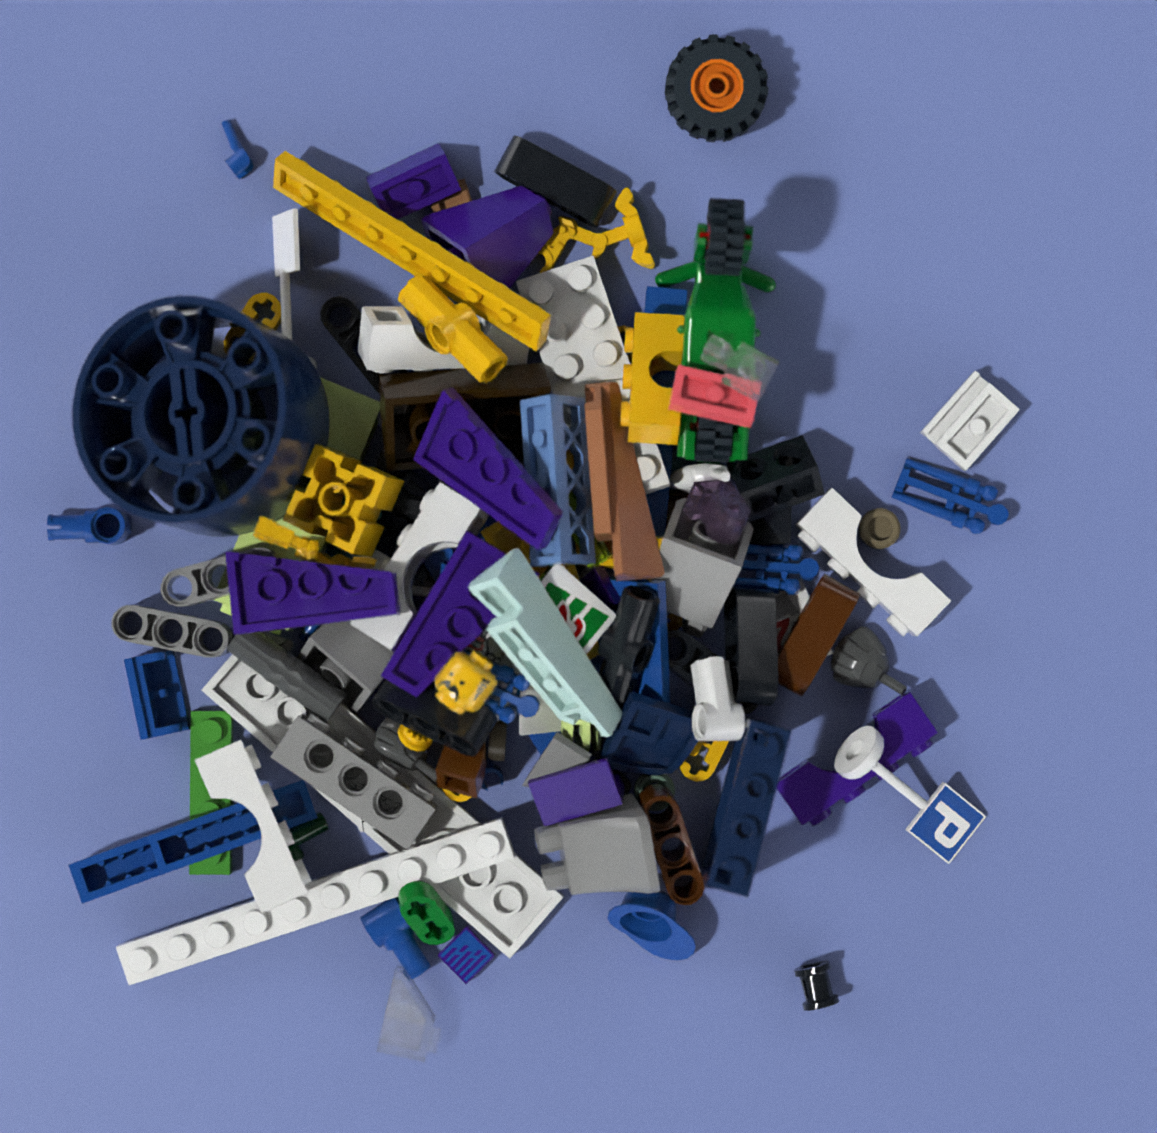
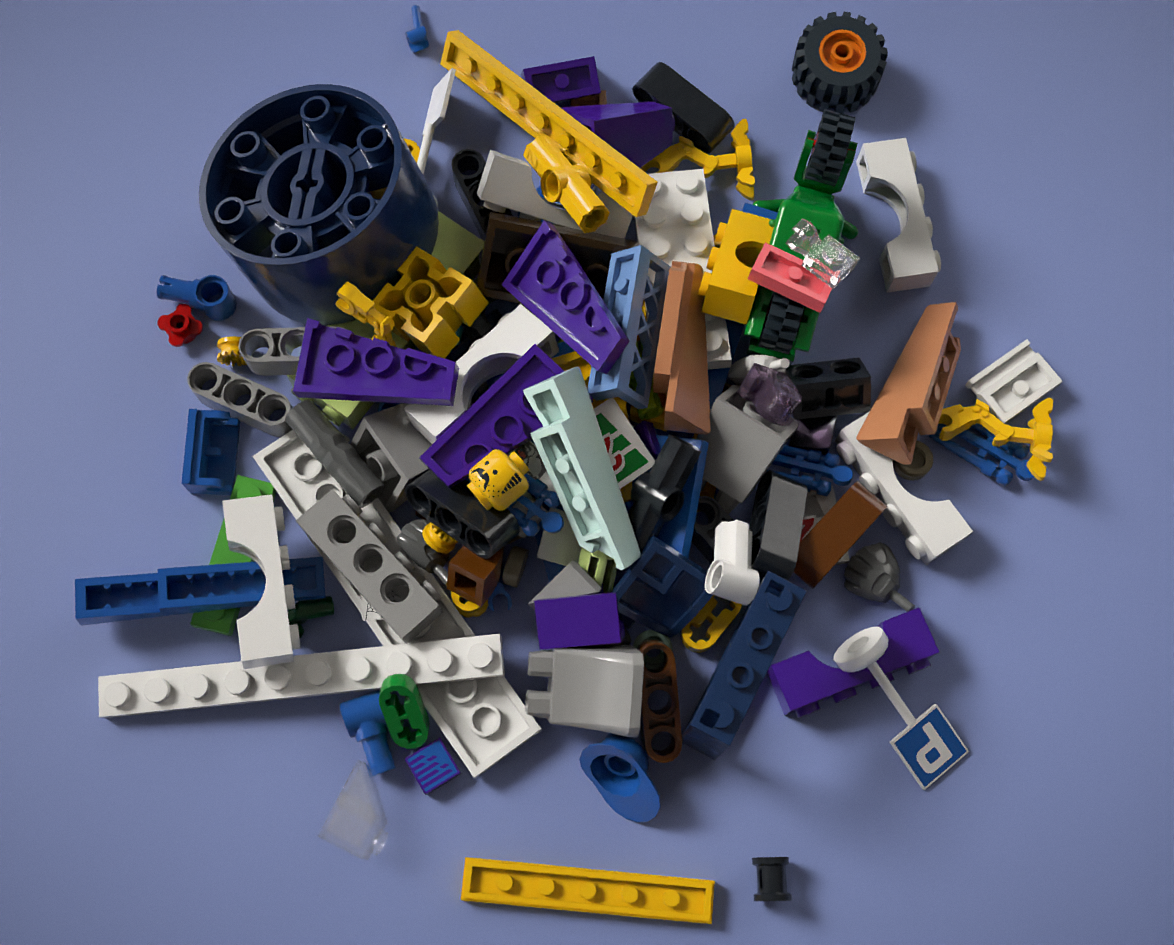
camera: 10 degrees right, 15 degrees down
(81, 575) = (181, 335): none -> red plate
(146, 578) = (230, 351): none -> yellow bush
(644, 1035) = (588, 890): none -> yellow tile
(796, 208) = (889, 173): none -> white arch
(867, 454) = (915, 388): none -> nougat wedge
(921, 475) = (1039, 436): none -> yellow piece

